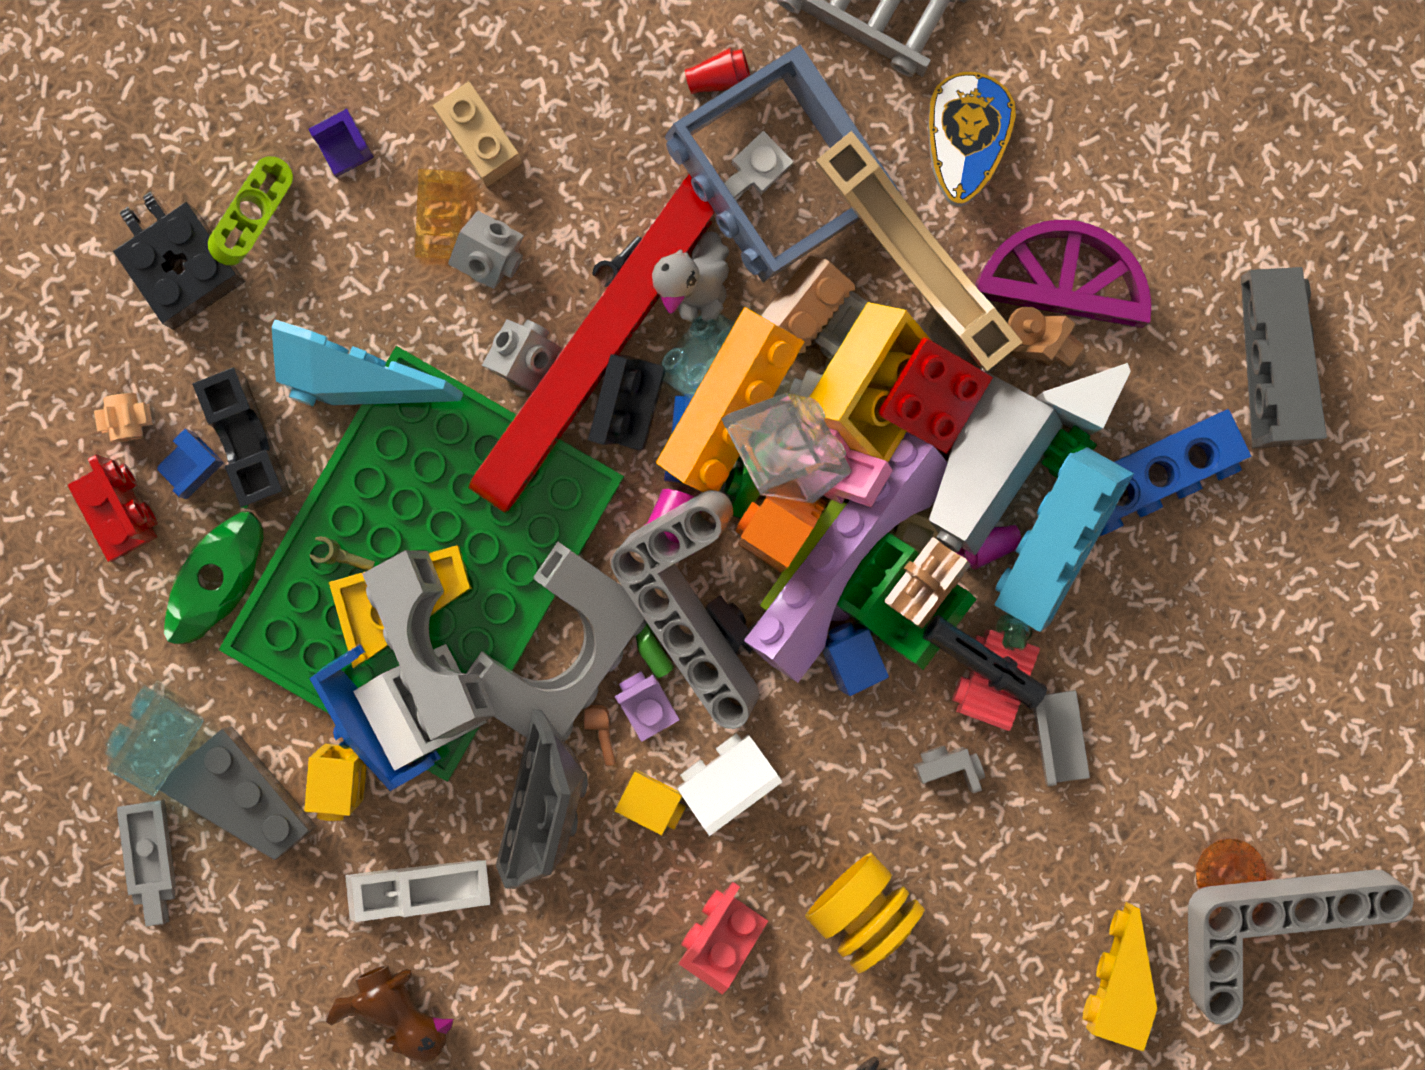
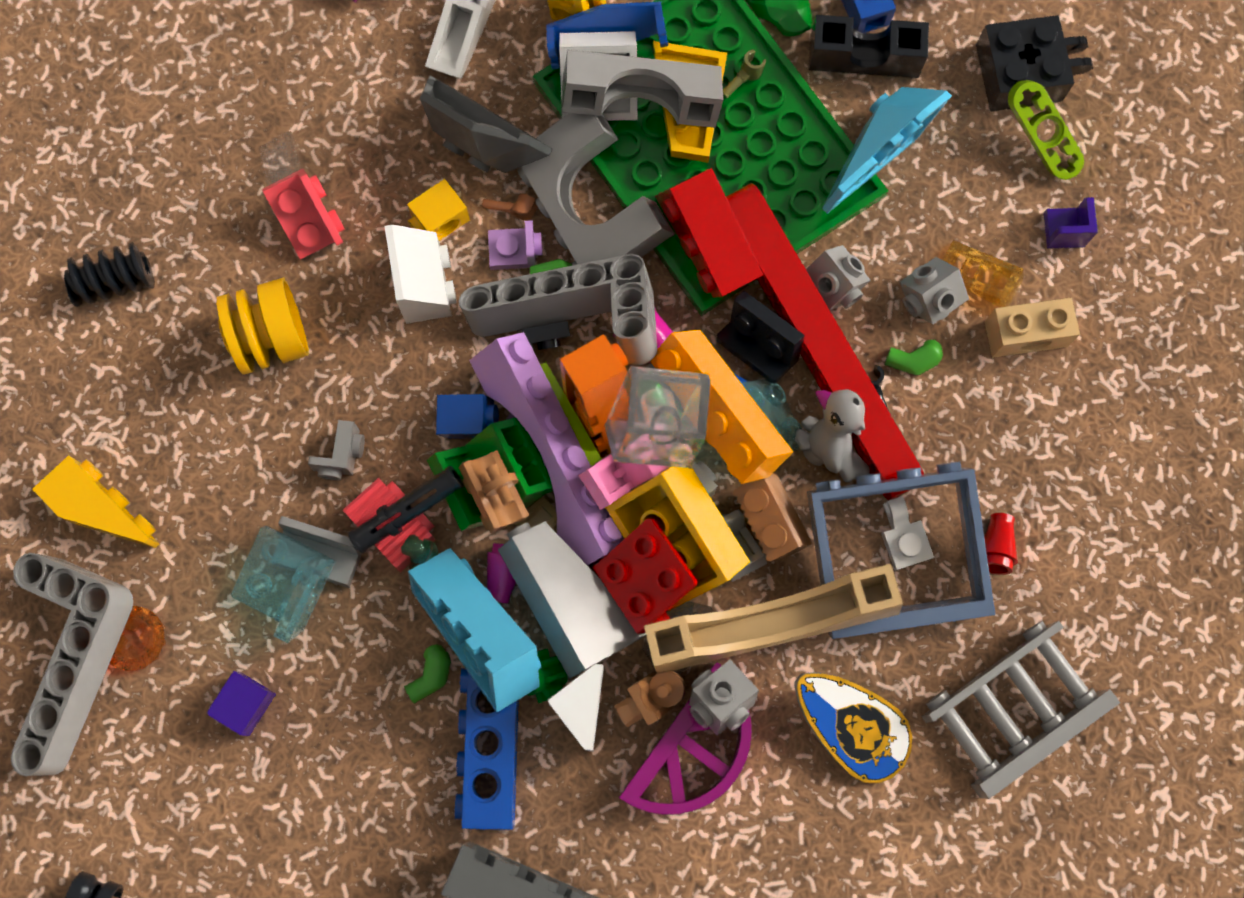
camera: 120 degrees right, 10 degrees down
(544, 505) = (710, 233): none -> red wedge
(566, 234) = (917, 361): none -> bright green arm
(1001, 260) = (722, 698): none -> light grey brick
(1106, 752) = (282, 581): none -> clear light blue bracket
(1116, 561) = (434, 674): none -> bright green arm
(1239, 730) = (241, 703): none -> dark purple panel

